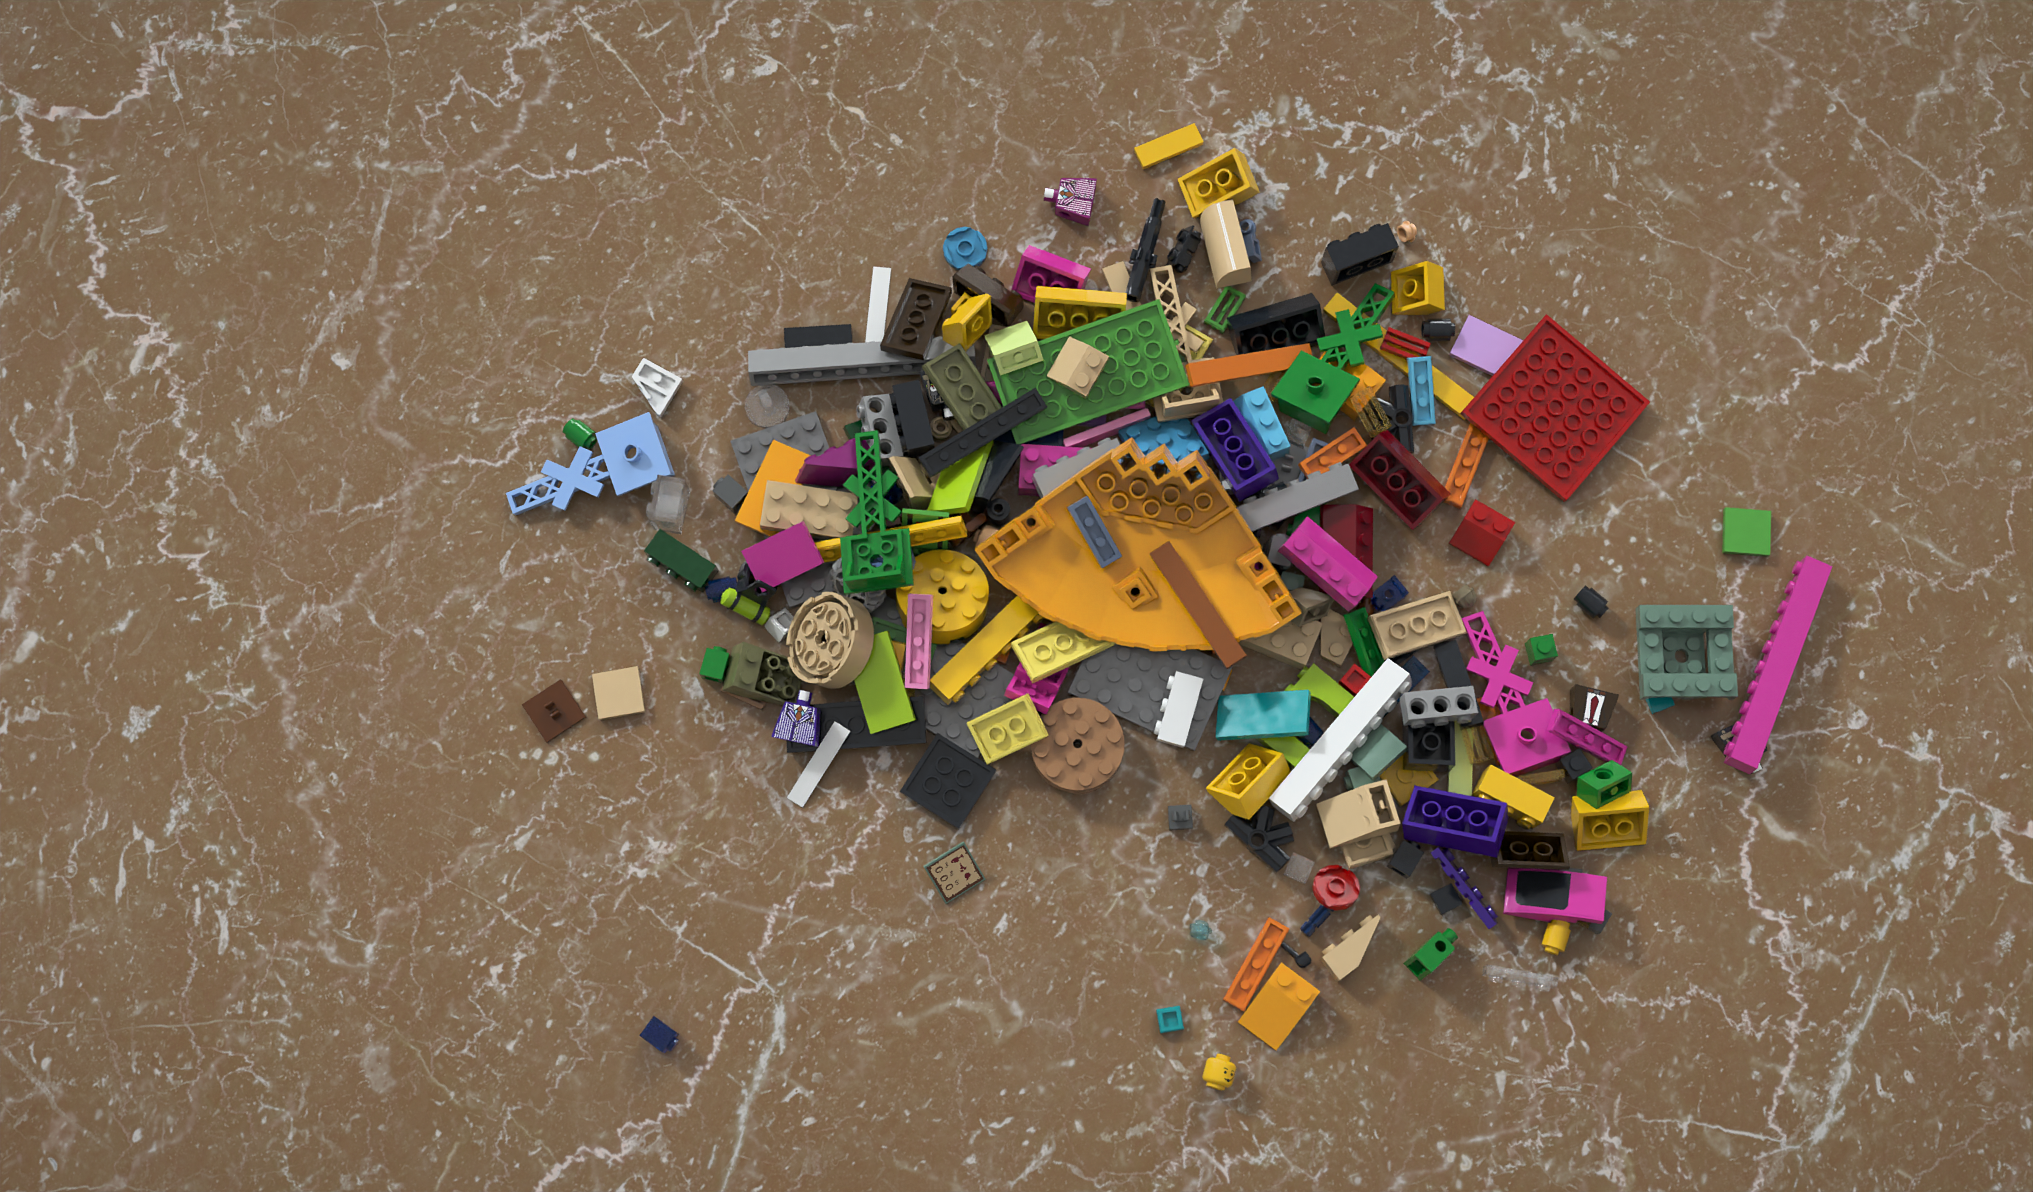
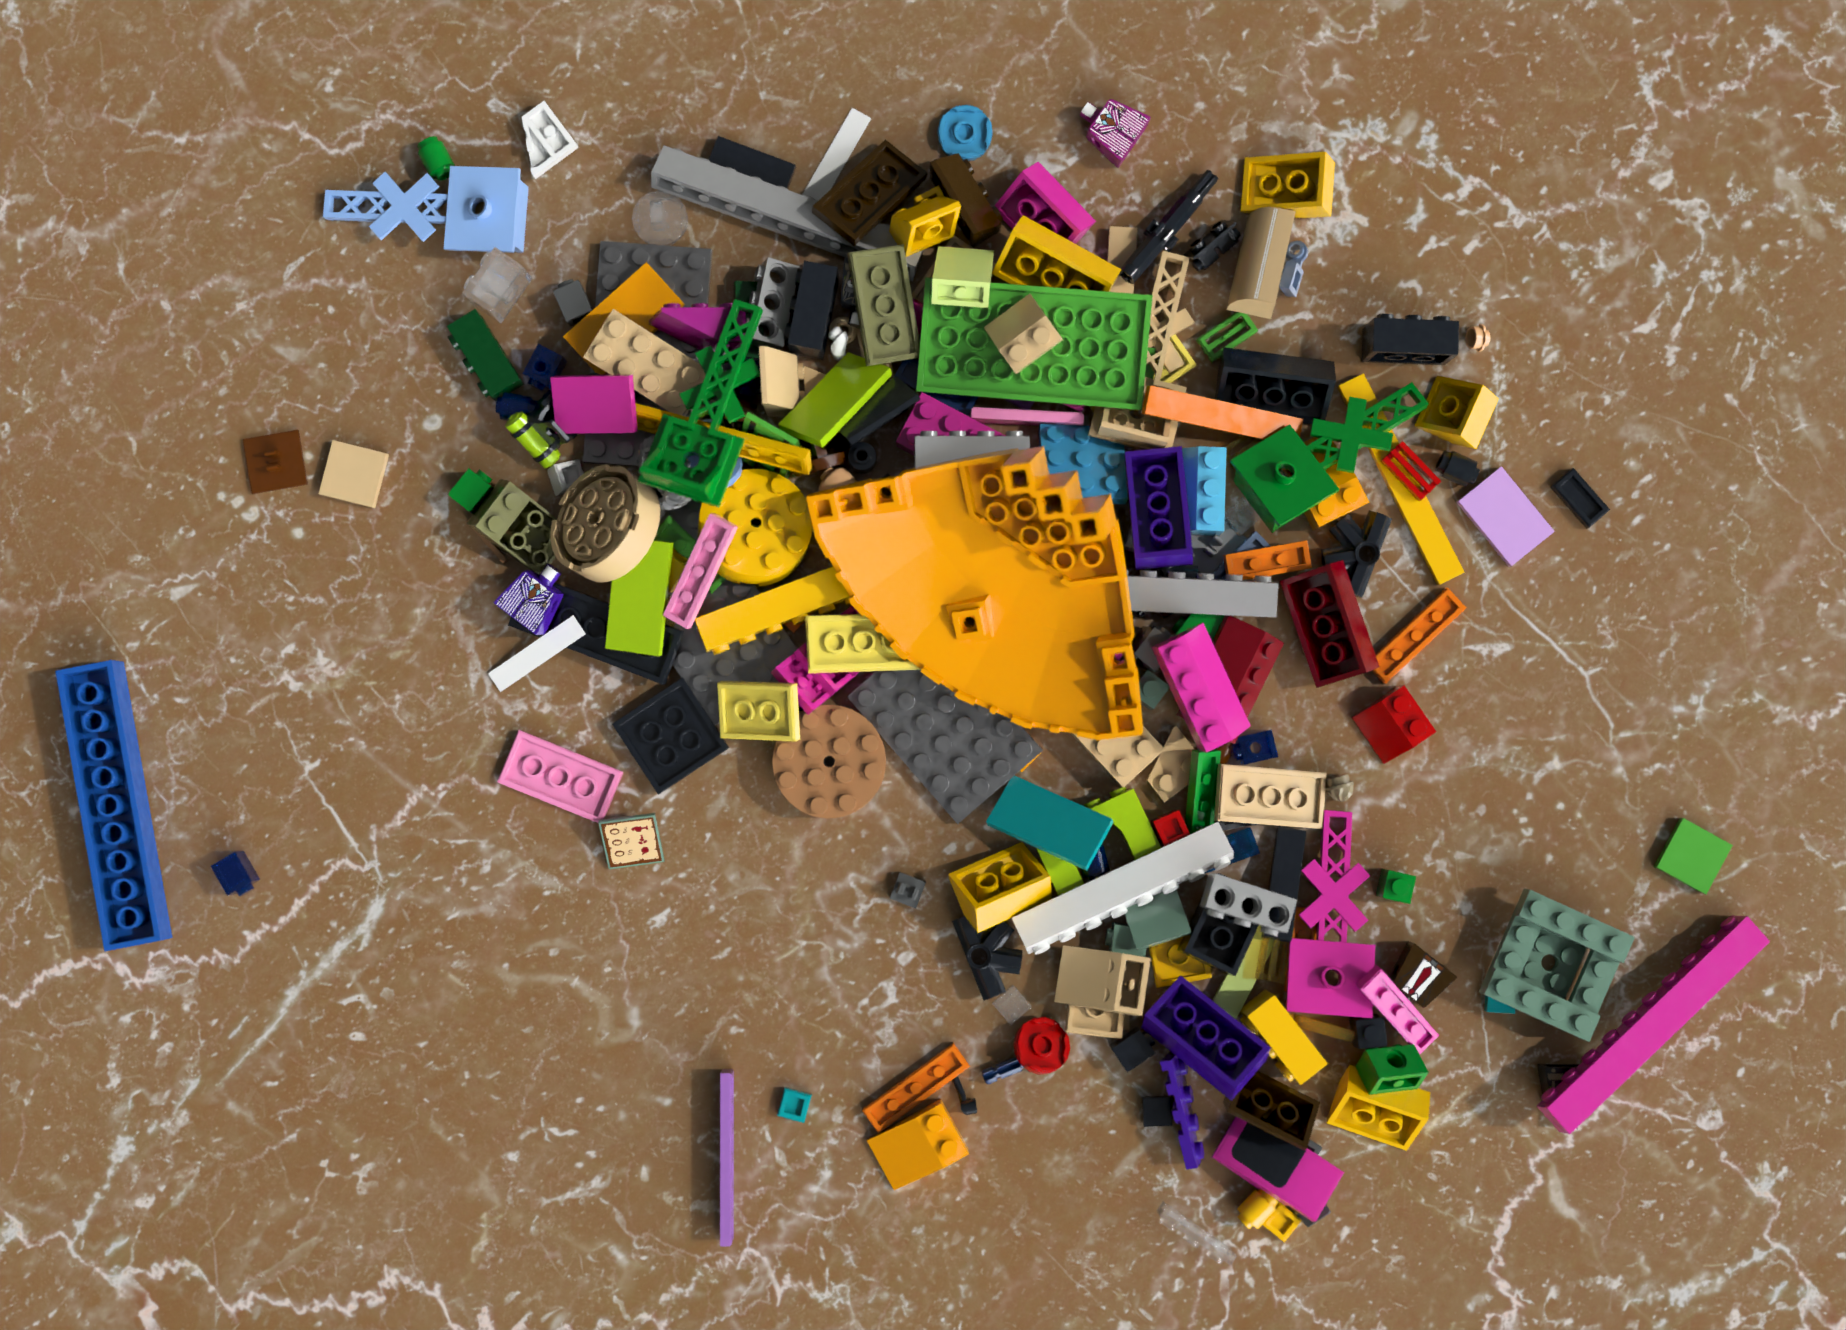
camera: 20 degrees right, 10 degrees up
(543, 1023) = (113, 804): none -> blue brick
(729, 551) = (542, 366): none -> clear blue brick
(877, 850) = (560, 776): none -> bright pink tile
(942, 432) = (839, 342): none -> white arm
(982, 432) = (882, 361): black tile -> none
(1094, 531) = (953, 534): sand blue plate -> none
(1137, 1082) = (726, 1157): none -> medium lavender tile
(1168, 146) = (1253, 114): yellow tile -> none
(1178, 709) = (958, 773): white brick -> none
(1198, 605) = (1030, 670): dark orange tile -> none
(1200, 930) = (871, 1023): clear light blue plate -> none
(1219, 1072) = (819, 1188): yellow head -> none
(1312, 605) = (1159, 722): dark tan slope -> none
(1348, 954) = (1020, 1123): tan slope -> none
(1354, 399) = (1331, 508): clear yellow tile -> none
(1421, 390) = (1404, 530): medium azure tile -> none
(1431, 953) = (1101, 1167): green torso -> none
(1534, 310) = (1580, 498): none -> black tile
(1555, 408) = (1546, 618): red plate -> none
(1579, 940) = (1282, 1222): none -> yellow tile
(1591, 602) = (1478, 857): black brick -> none

